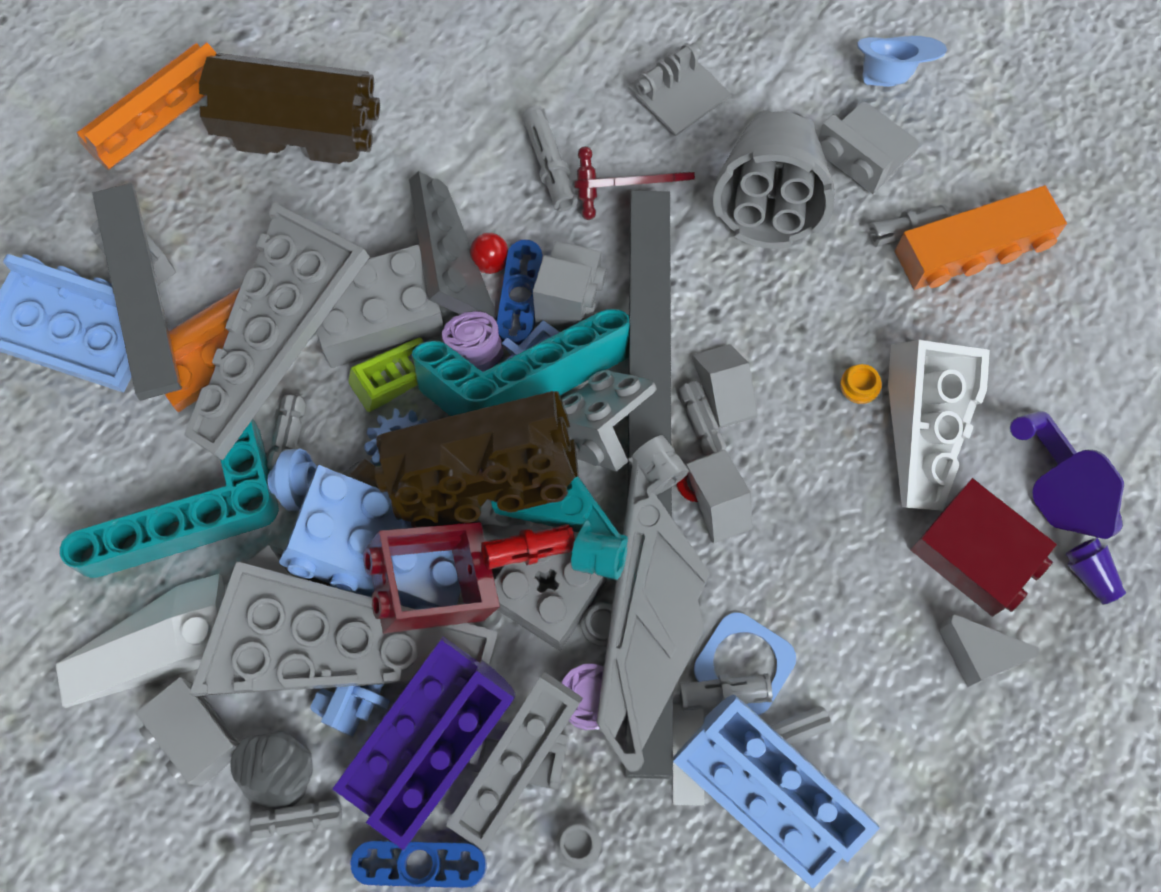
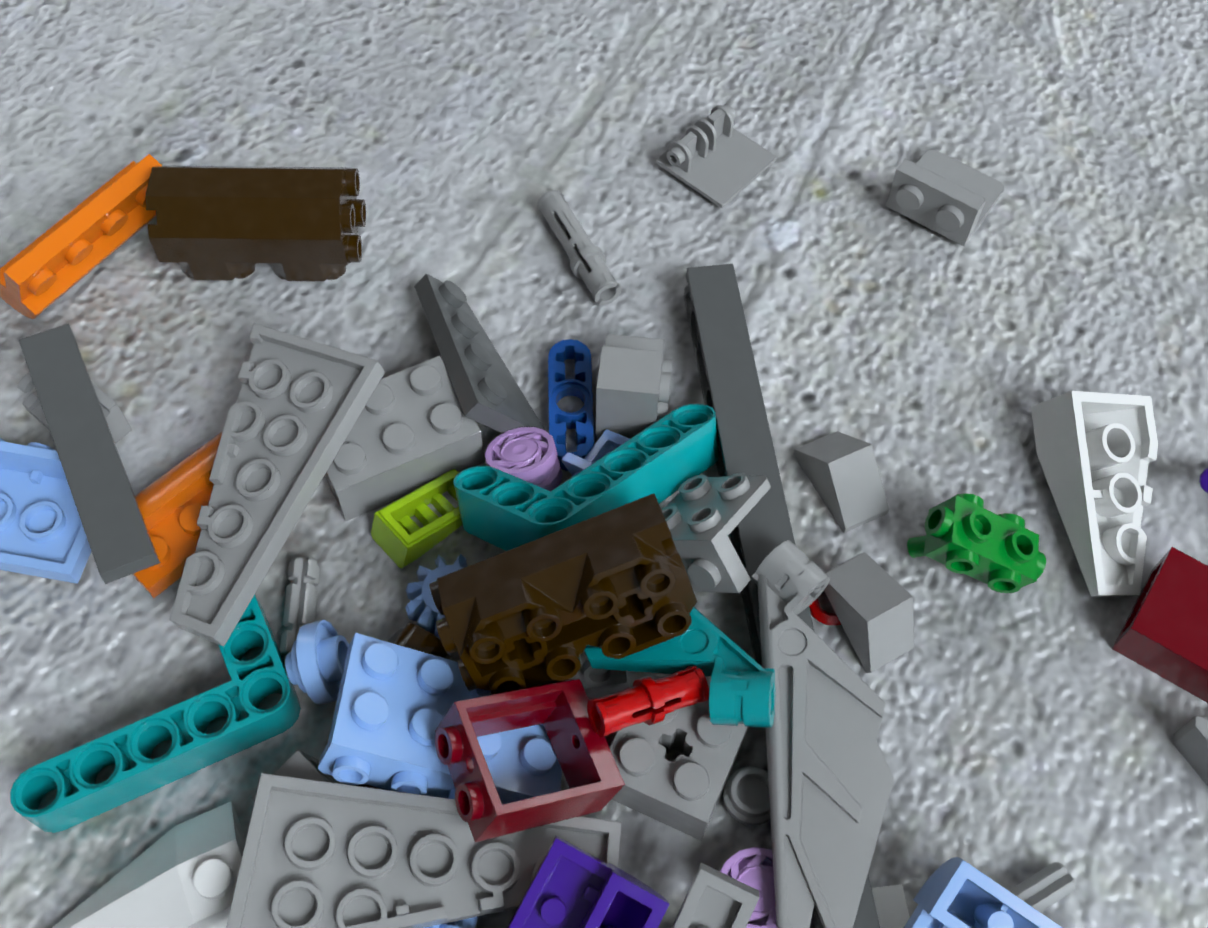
camera: 10 degrees left, 10 degrees down
(489, 252) = (525, 360): red piece -> none
(588, 183) = (632, 268): dark red piece -> none
(701, 418) = (822, 521): light grey axle -> none
(712, 692) = (918, 863): light grey pin -> none
(741, 623) = (925, 770): light blue piece -> none
(775, 182) = (857, 241): light grey cone -> none
(820, 454) = (980, 544): none -> green brick
(861, 384) = (1004, 457): light orange plate -> none
(893, 229) = (1015, 274): light grey pin -> none
(896, 58) = (956, 101): light blue piece -> none
(980, 238) = (1100, 278): orange brick -> none

